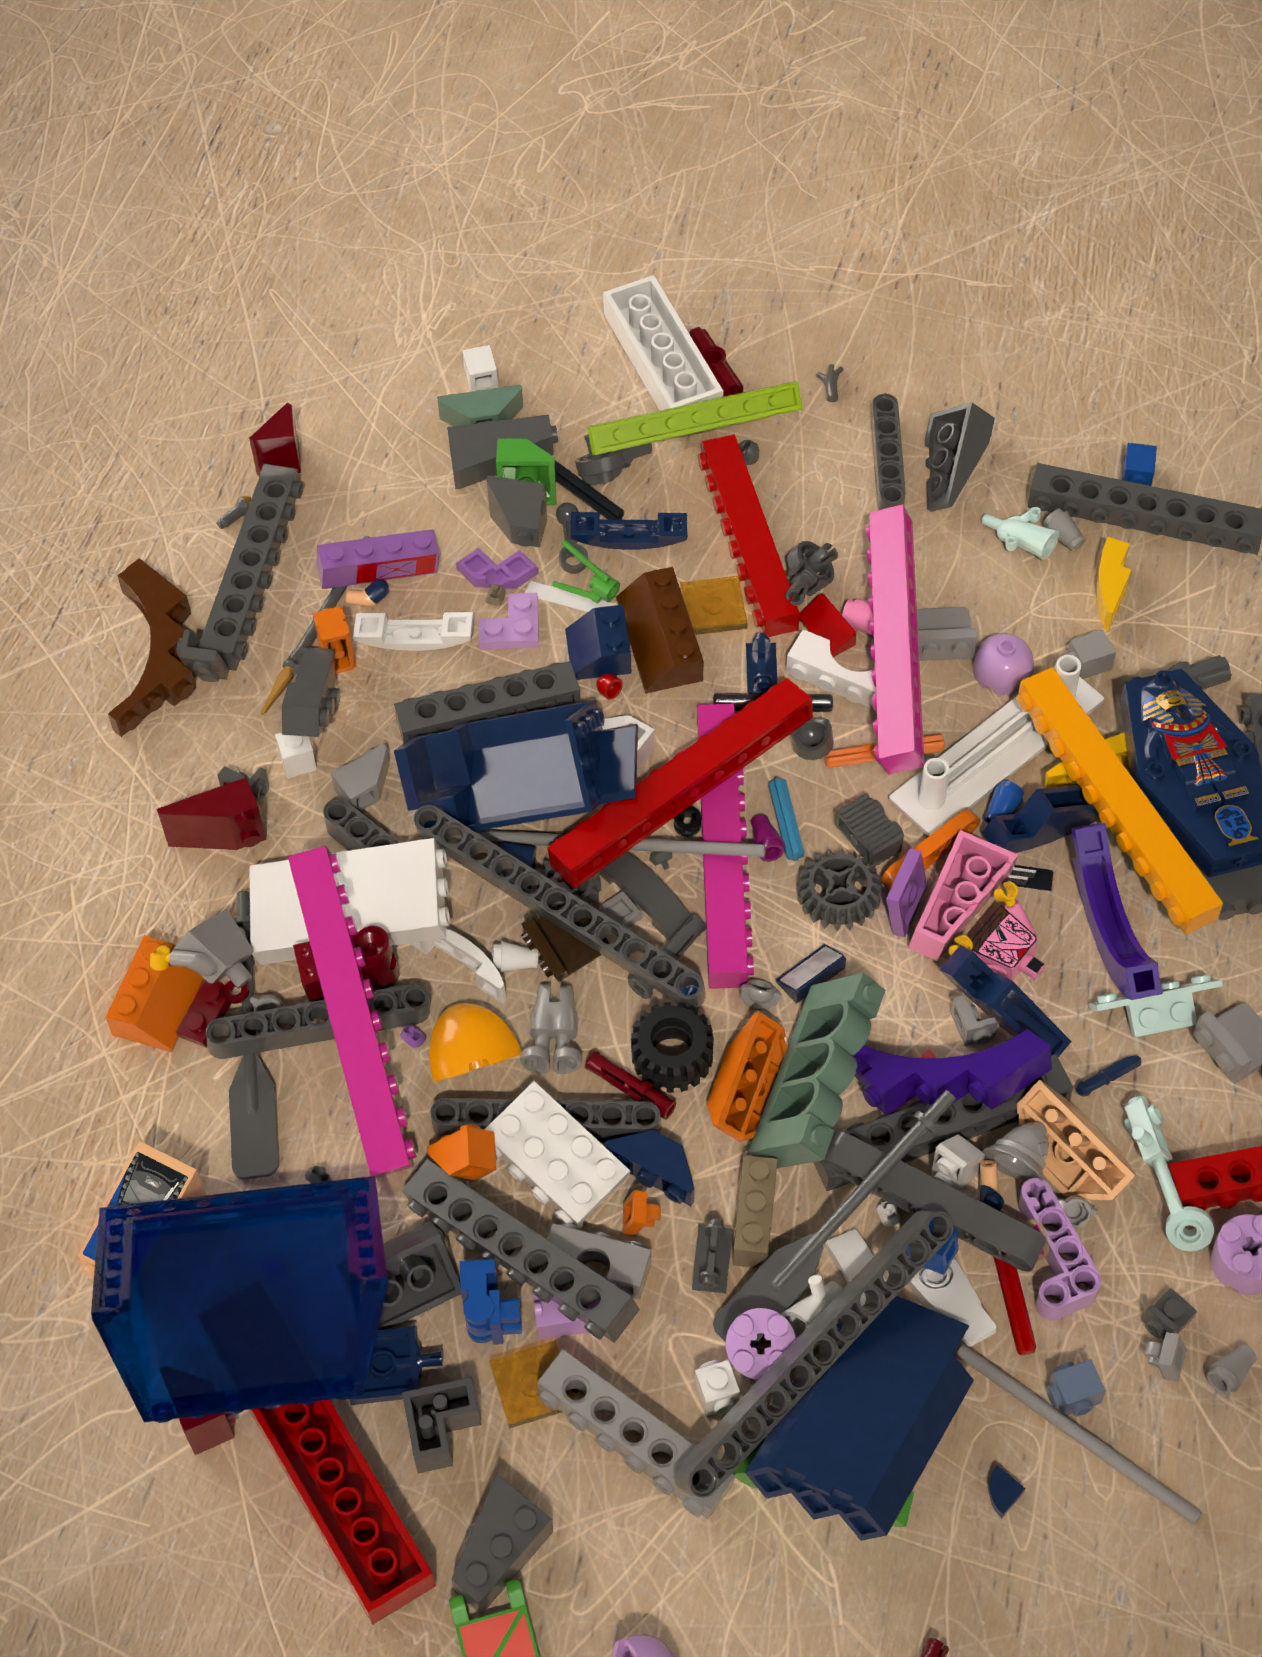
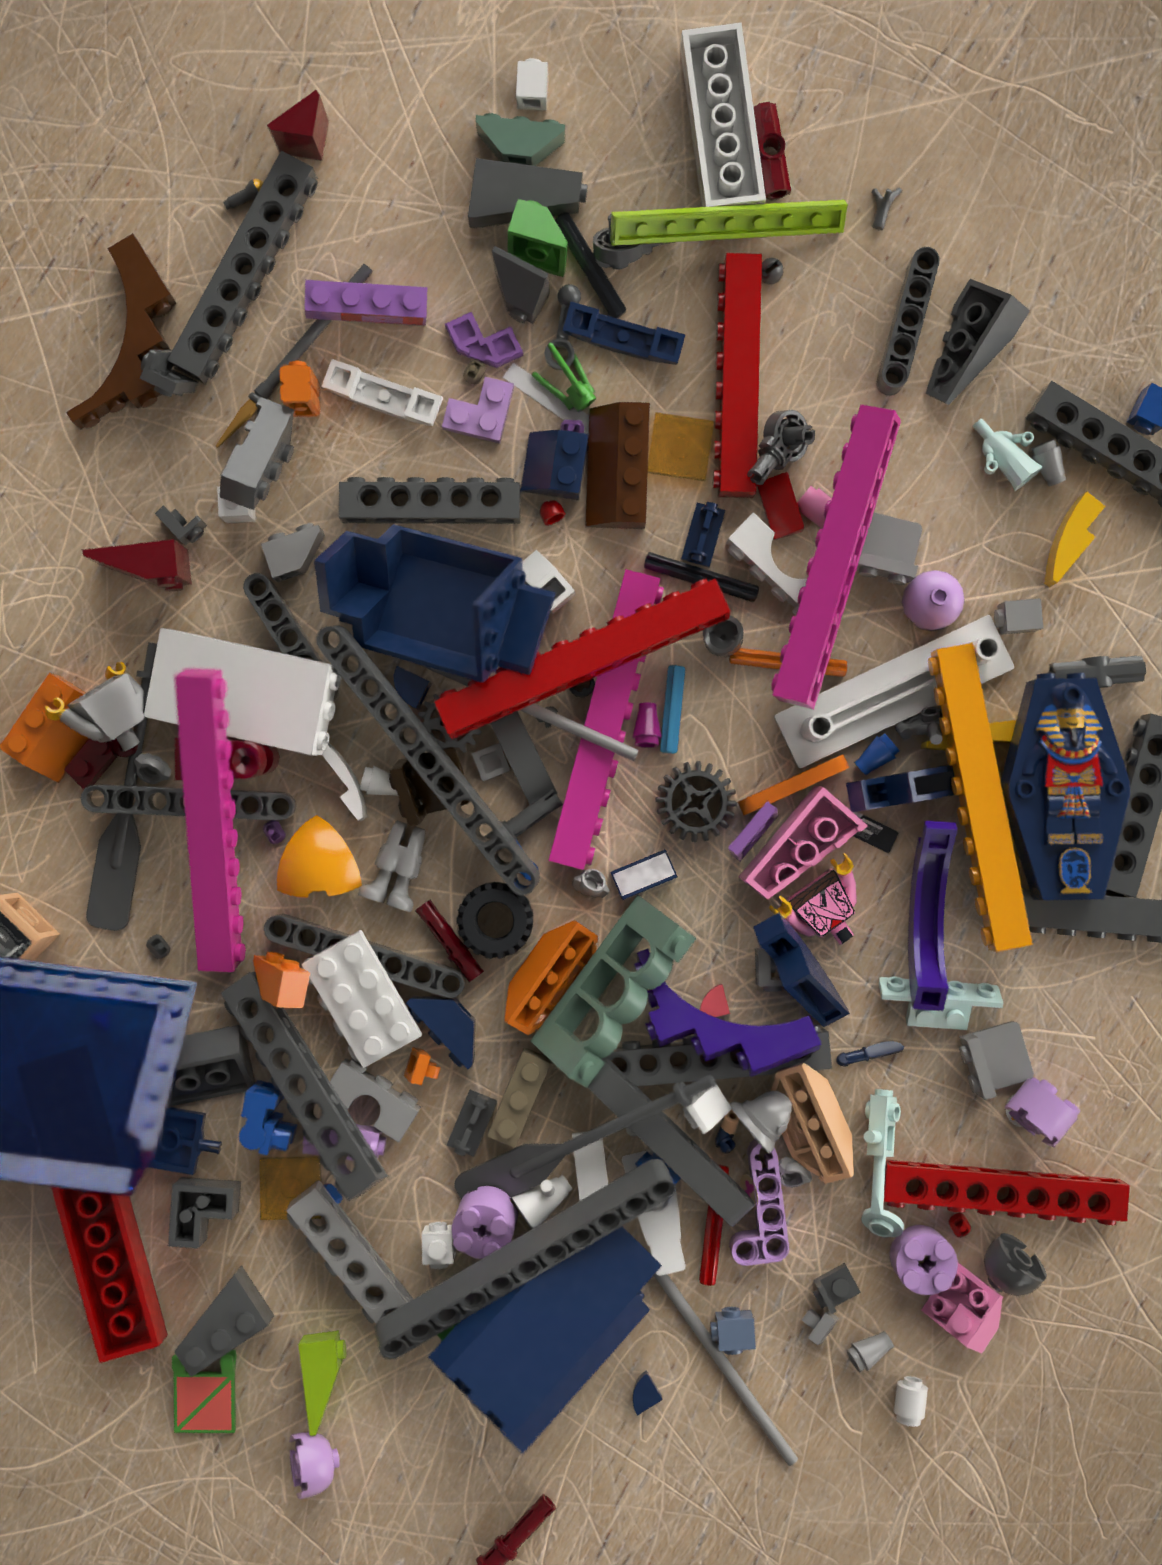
camera: 15 degrees right, 30 degrees up
(369, 596) = (353, 337): arm -> none
(625, 1563) = (320, 1364): none -> lime slope
(869, 829) = (744, 746): dark grey brick -> none
(1041, 762) = (923, 723): none -> dark grey piece

